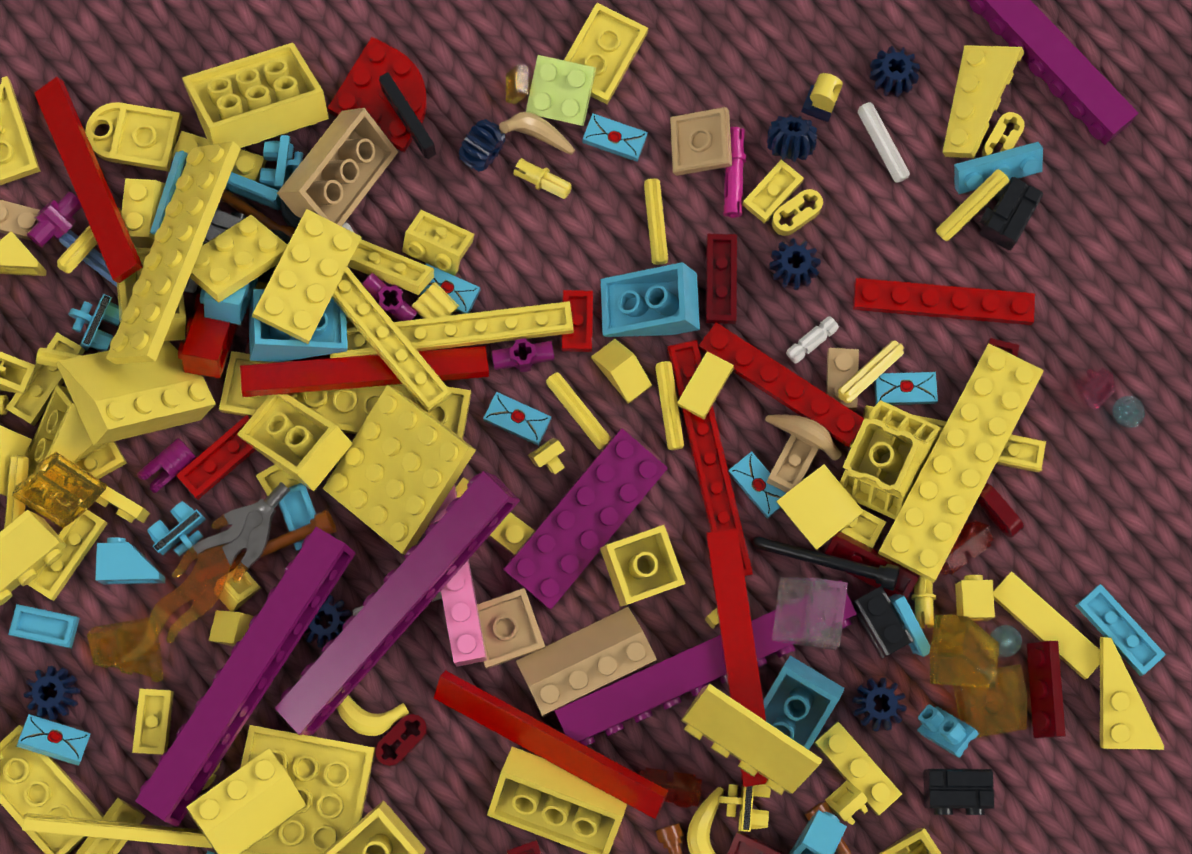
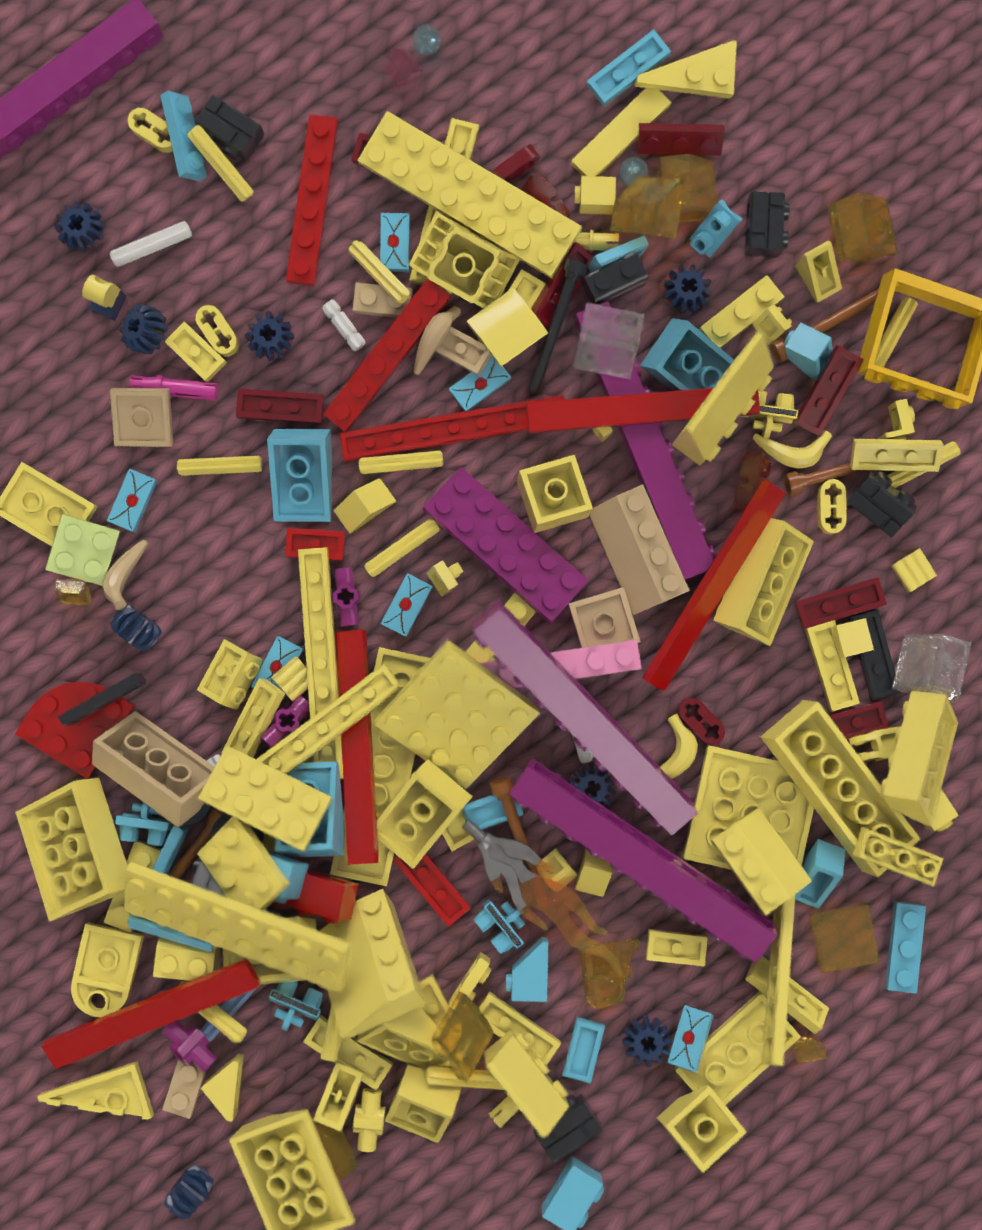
camera: 80 degrees left, 10 degrees up
(172, 459) = (433, 931): magenta hinge -> none
(542, 178) = (171, 571): light yellow axle -> none
(705, 385) = (385, 426): light yellow tile -> none
(977, 94) = (106, 148): light yellow wing -> none

